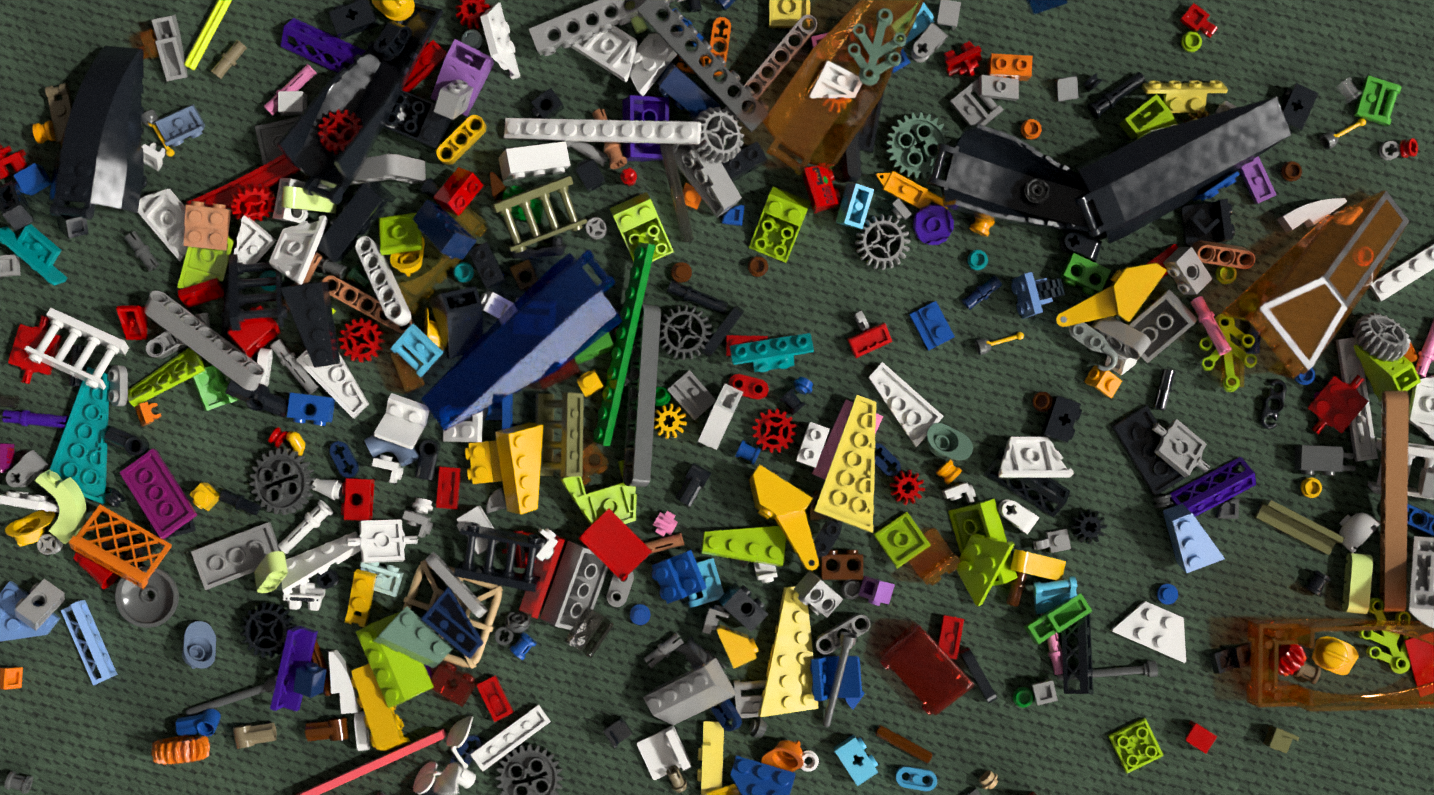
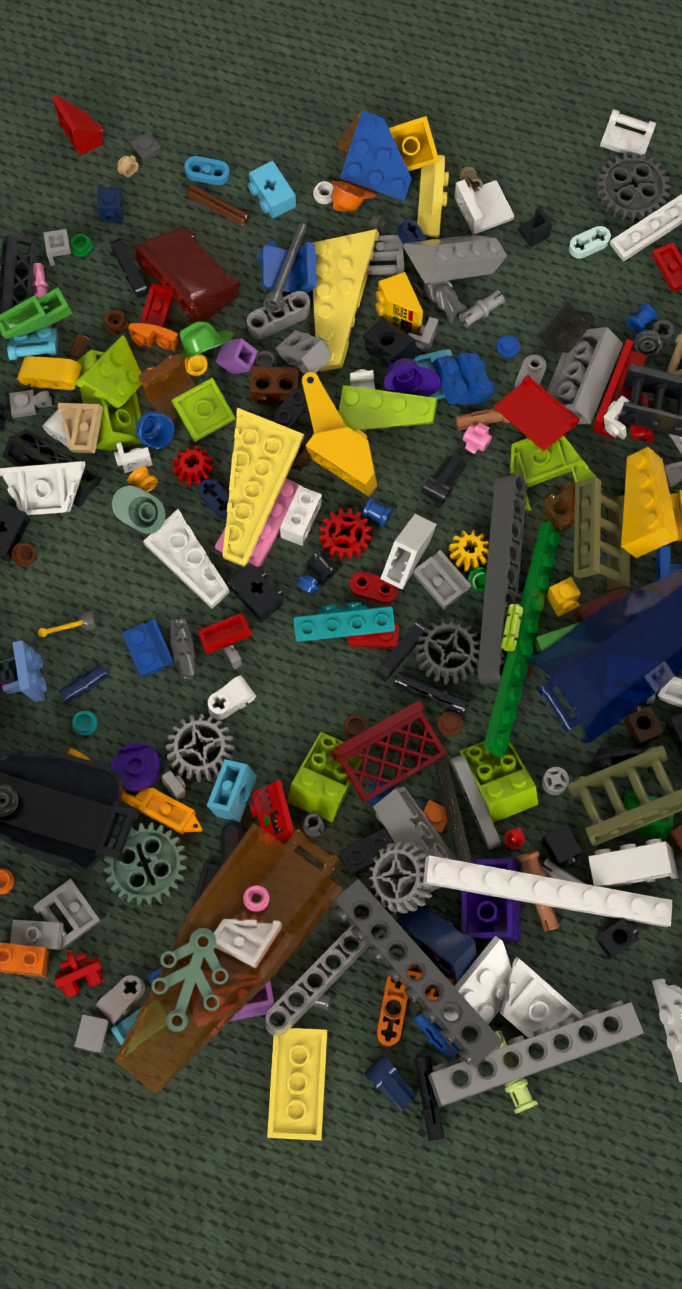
camera: 175 degrees left, 15 degrees down
(571, 725) = (588, 240): none -> light aqua beam
(633, 347) = (512, 627): none -> lime axle
(660, 208) = (475, 802): none -> light grey beam
(726, 572) = (409, 378): none -> dark purple piece
(740, 258) = (373, 736): none -> dark red fence
(789, 182) = (310, 821): none -> dark grey pin
(829, 110) = (256, 891): none -> bright pink plate
(856, 377) = (258, 604): none -> black brick
(858, 287) = (233, 696): none -> white piece
(903, 325) = (182, 649): none -> dark grey hinge
(908, 604) = (201, 337): none -> bright green piece
(911, 584) = (196, 365): none -> yellow plate
(942, 517) = (155, 429): none -> blue hair
(956, 609) = (147, 334): none -> orange slope
(991, 624) = (115, 315): none -> reddish brown plate
(1000, 736) = (110, 204): none -> dark blue brick
(1005, 512) = (81, 425): none -> tan wing

